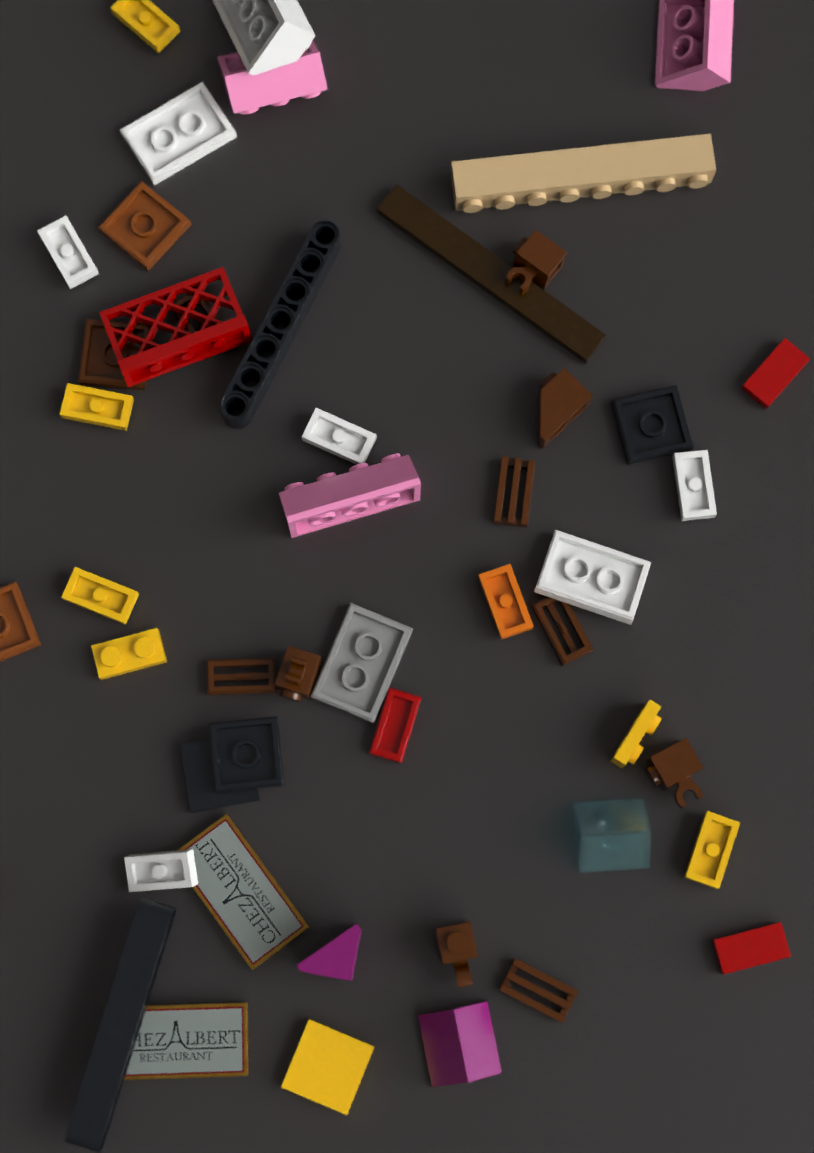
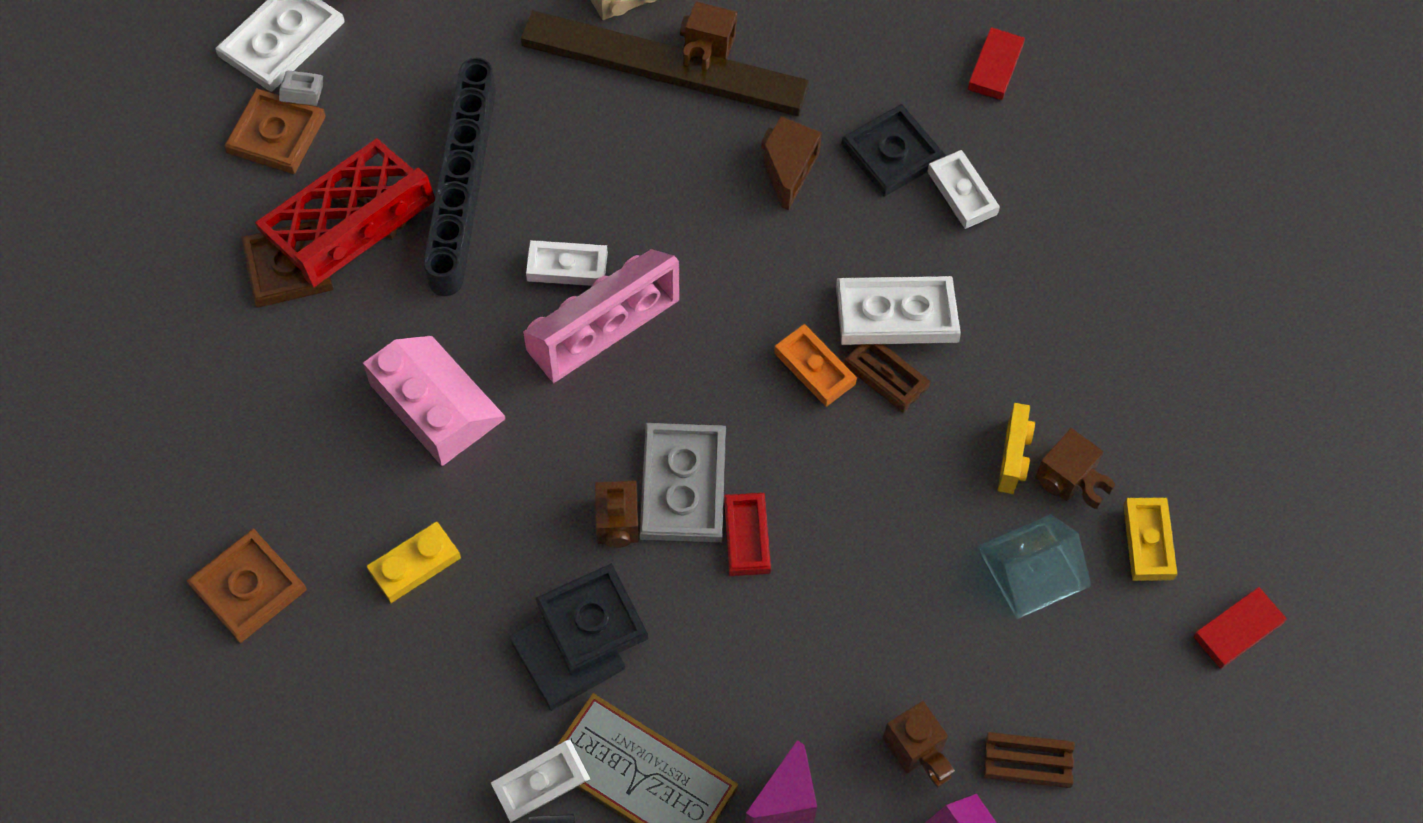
camera: 20 degrees left, 15 degrees down
(68, 252) = (199, 178): white plate -> none
(96, 406) = (285, 318): yellow plate -> none
(100, 595) = (358, 509): yellow plate -> none
(177, 194) = (301, 88): none -> light grey tile
(191, 517) = (432, 395): none -> bright pink slope
(237, 663) = (556, 556): reddish brown tile -> none
(518, 464) = (771, 231): reddish brown tile -> none

